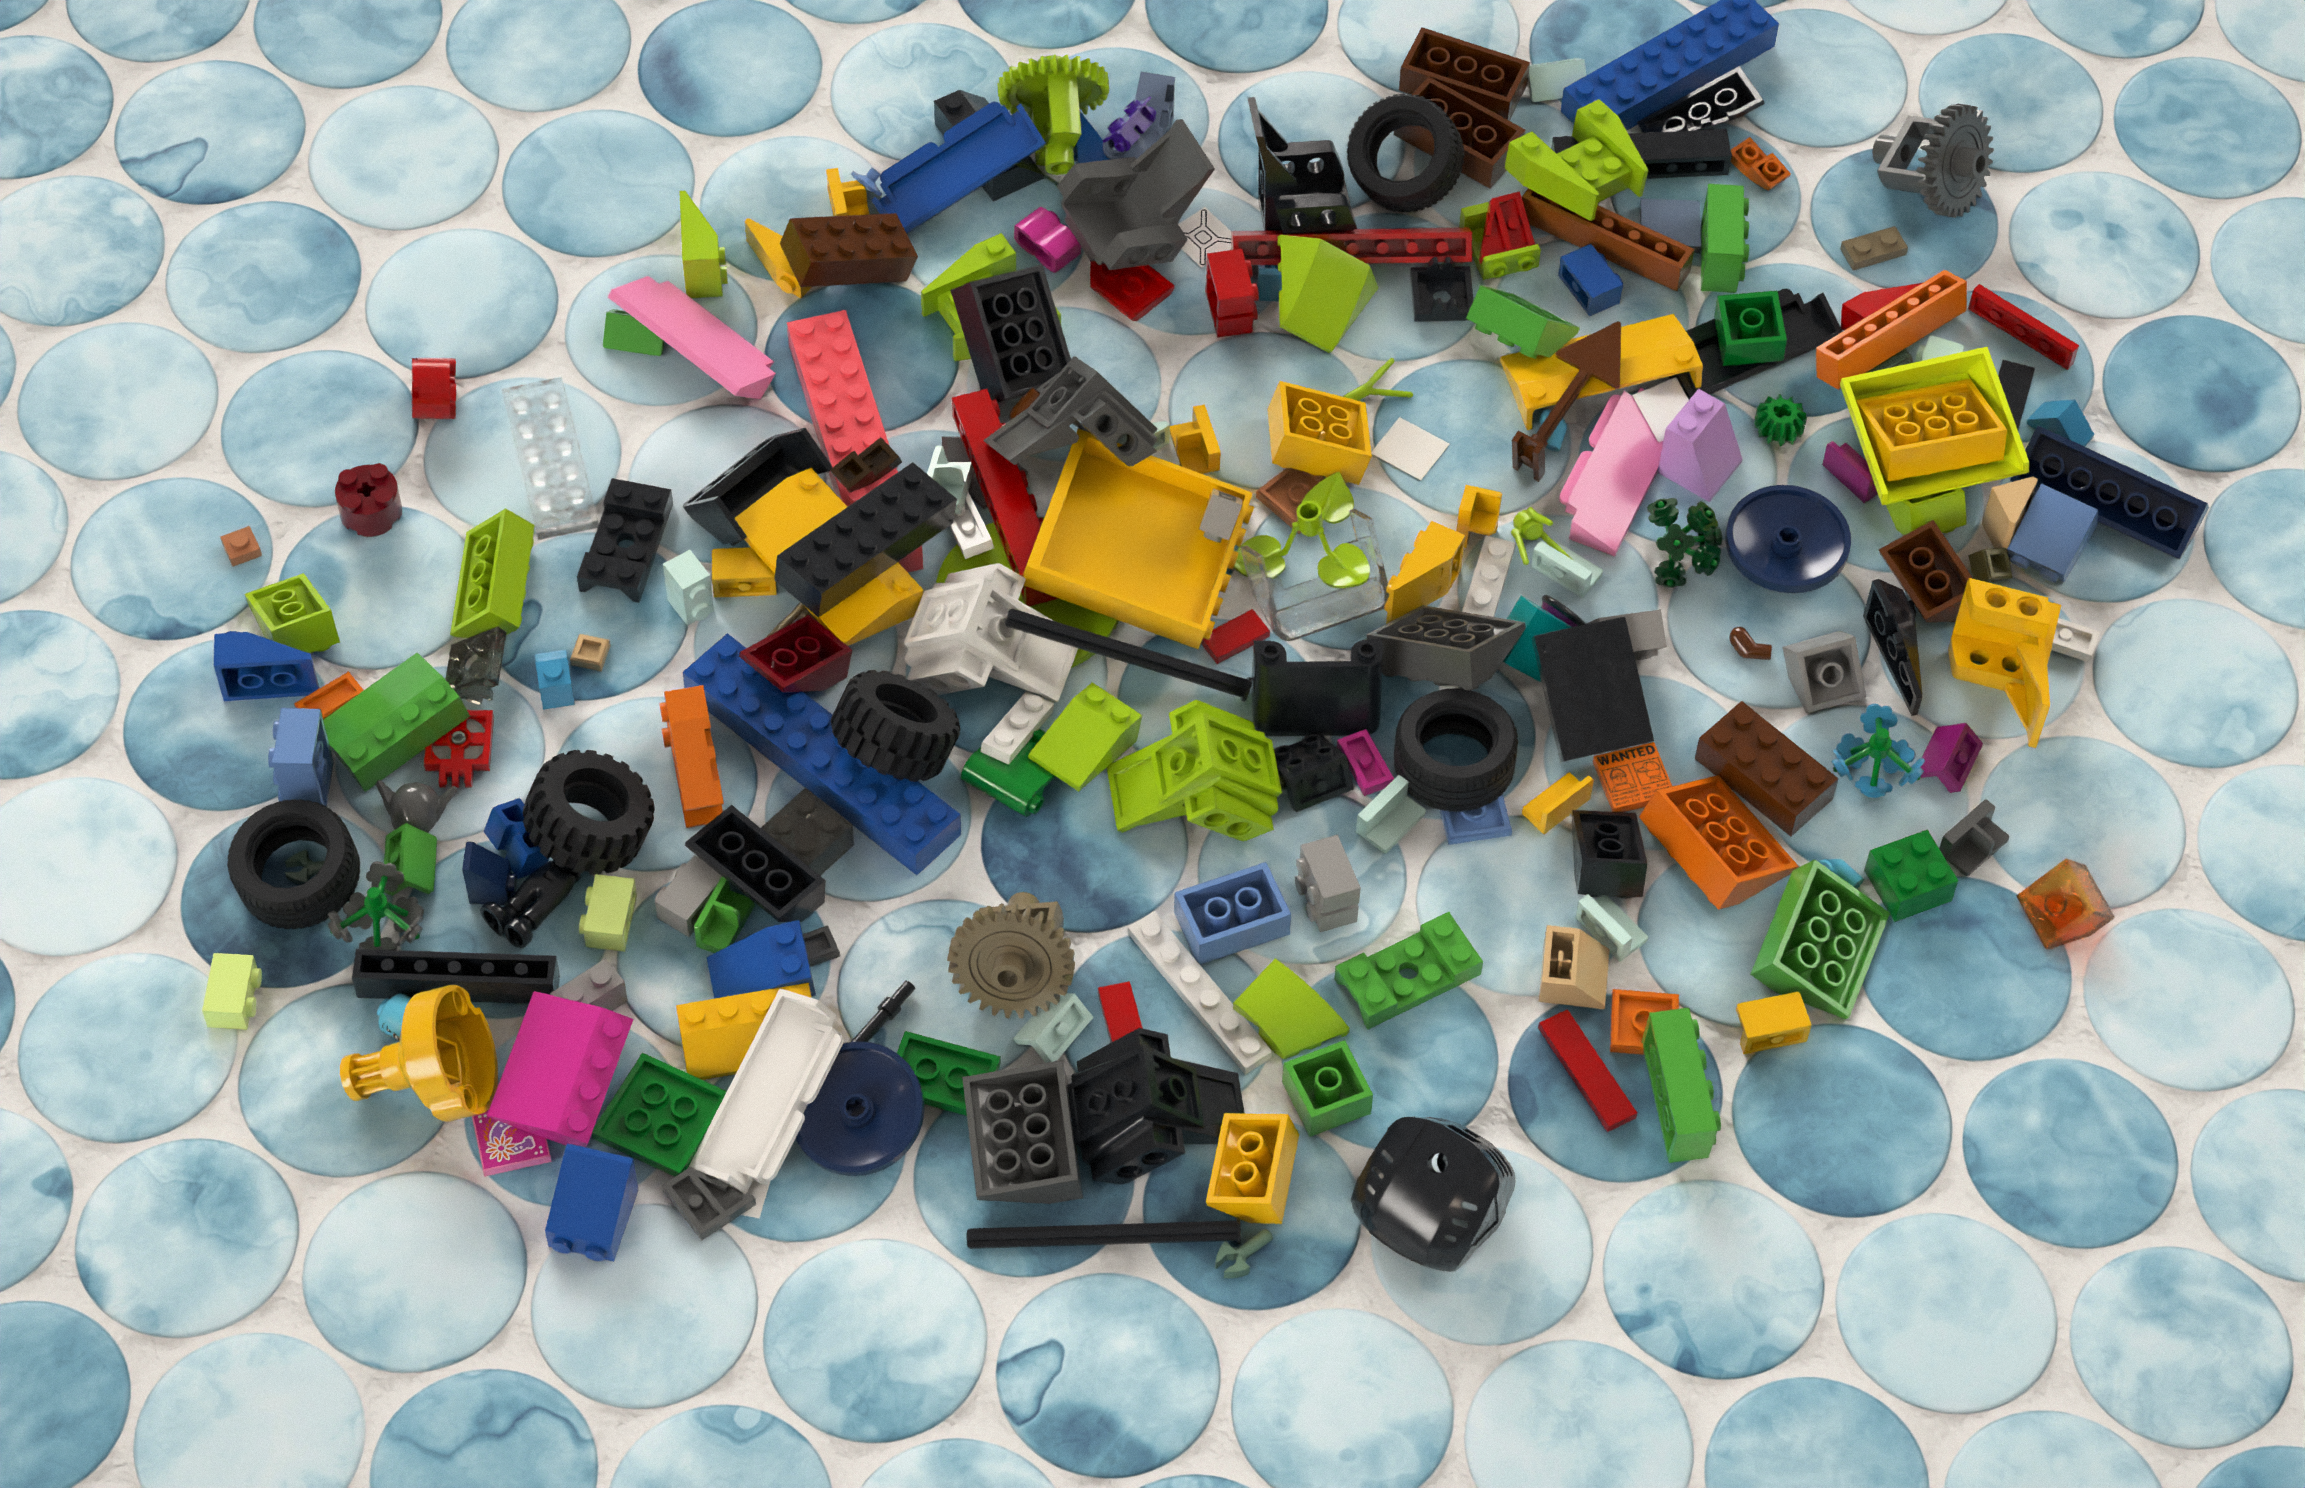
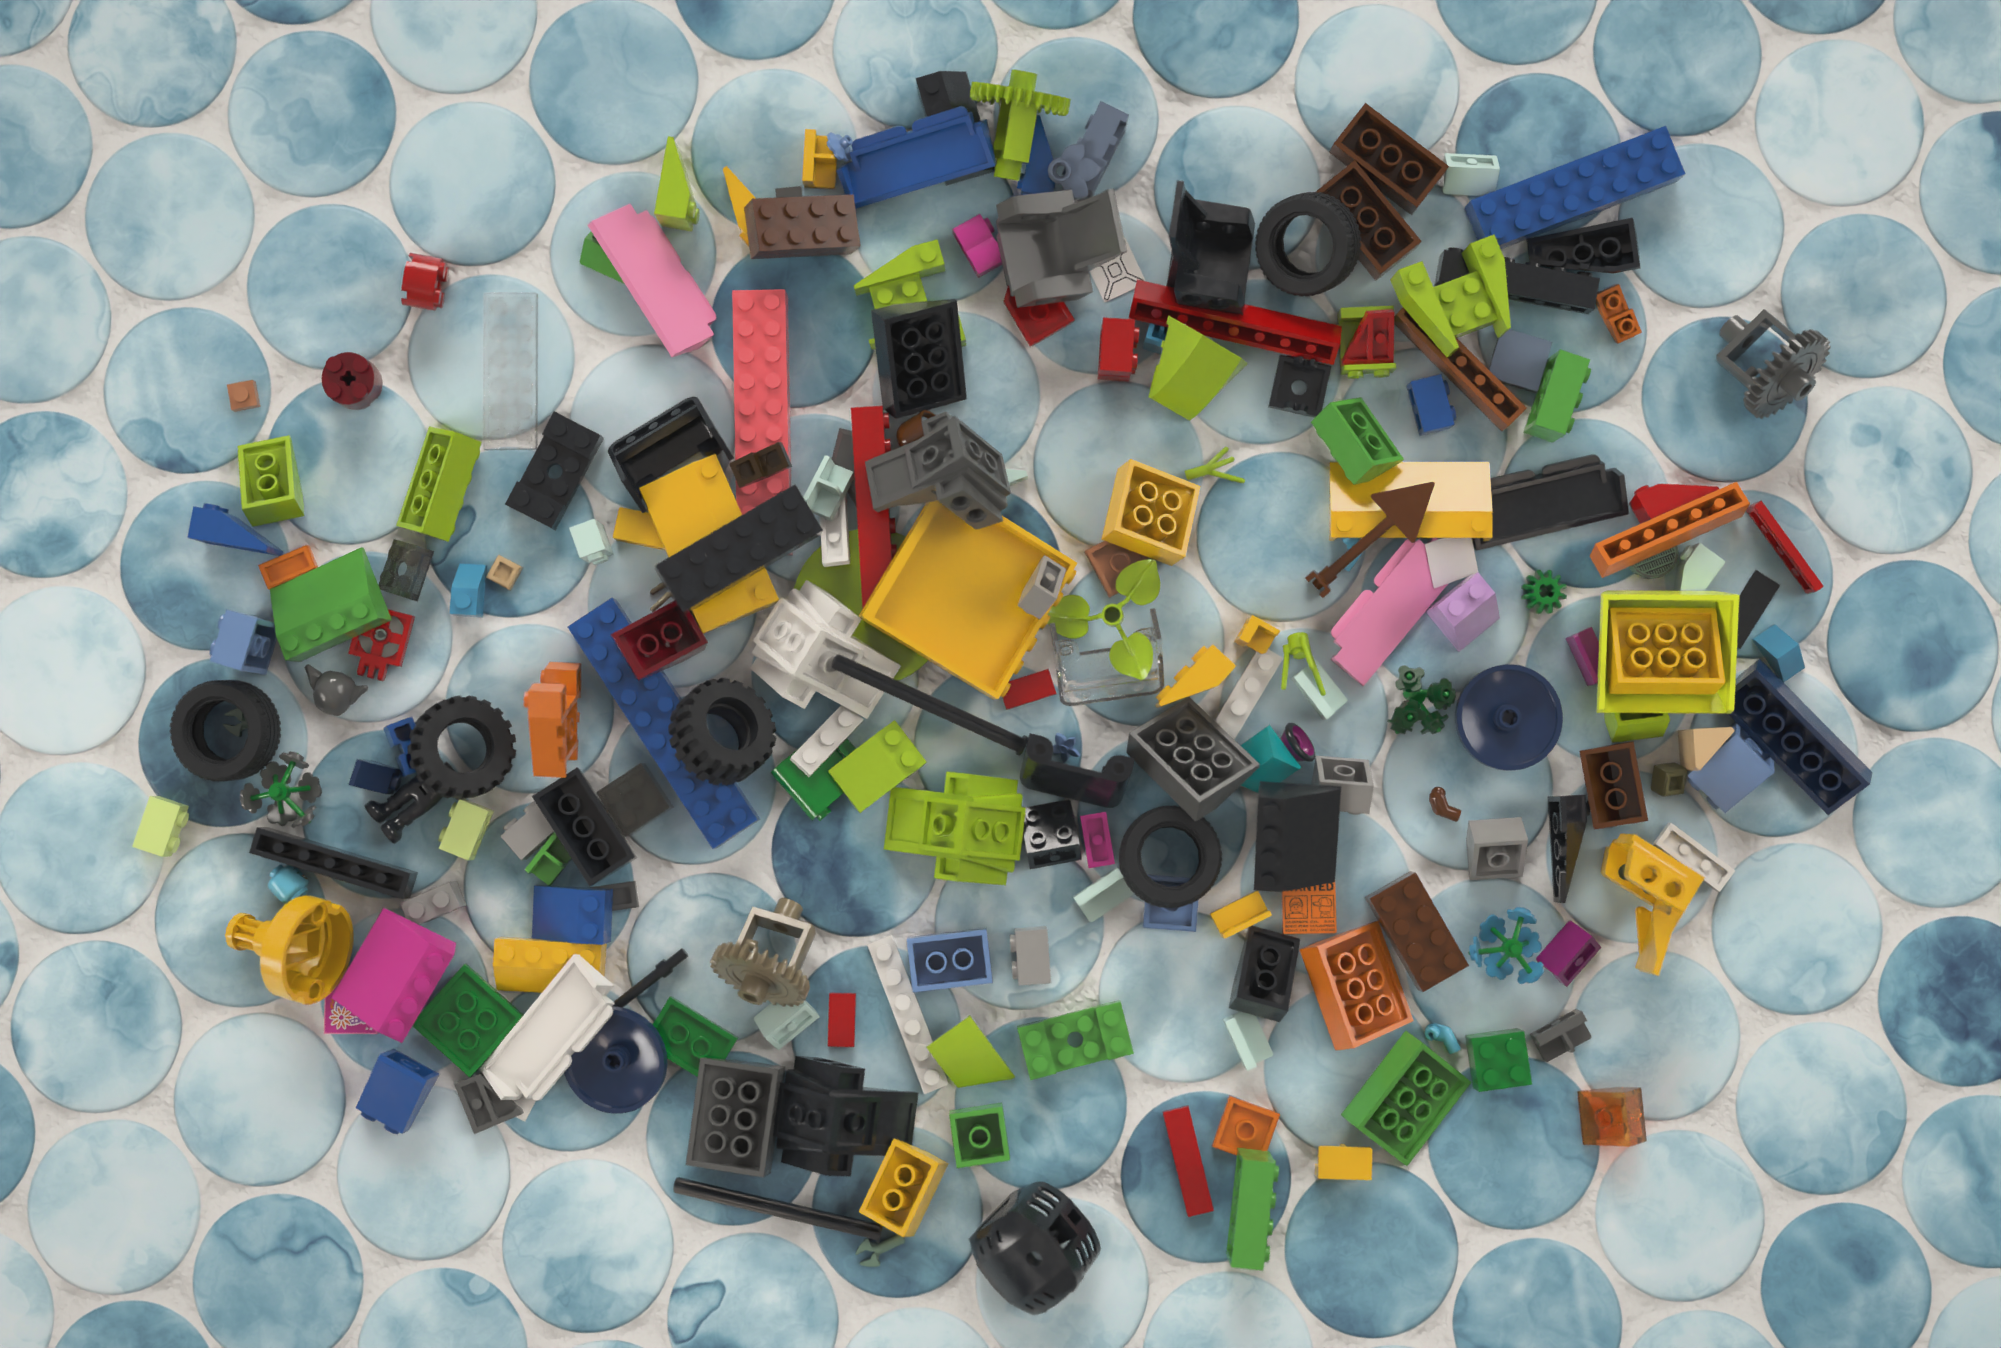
camera: 15 degrees right, 30 degrees up
(413, 855) = (322, 739): bright green panel -> none
(1122, 129) = (1065, 164): dark purple hinge -> none
(1196, 443) = (1047, 489): yellow panel -> none
(1410, 448) = (1226, 535): white sticker -> none
(1573, 968) = (1203, 1076): tan slope -> none
(1750, 328) = (1548, 500): green brick -> none
(1874, 248) = (1686, 427): dark tan plate -> none

